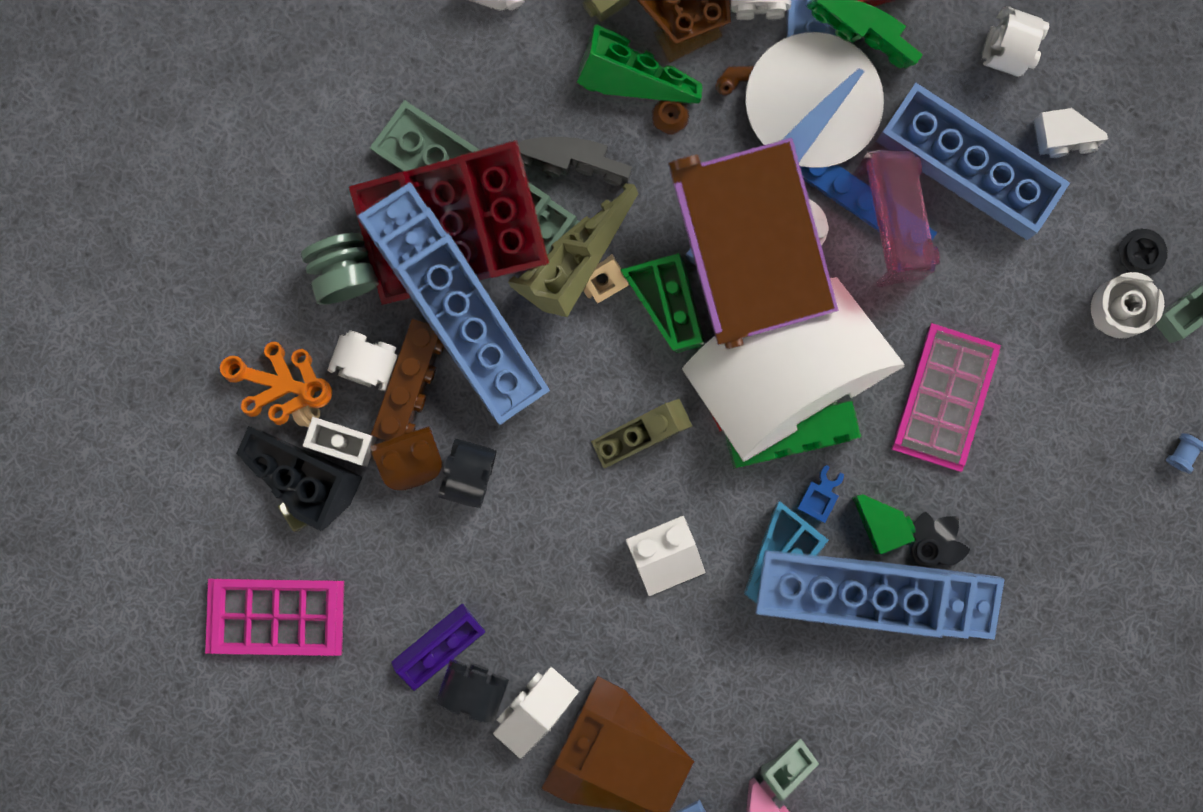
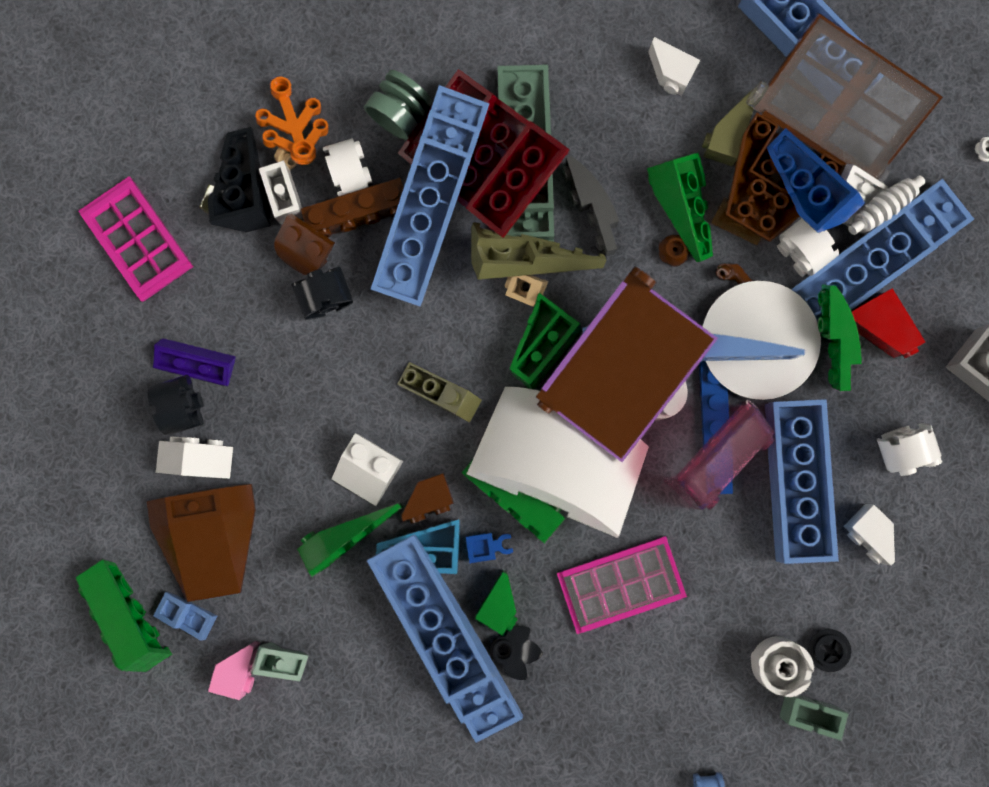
camera: 55 degrees right, 0 degrees up
(712, 640) = (330, 544): none -> green wedge
(734, 517) = (428, 496): none -> reddish brown slope

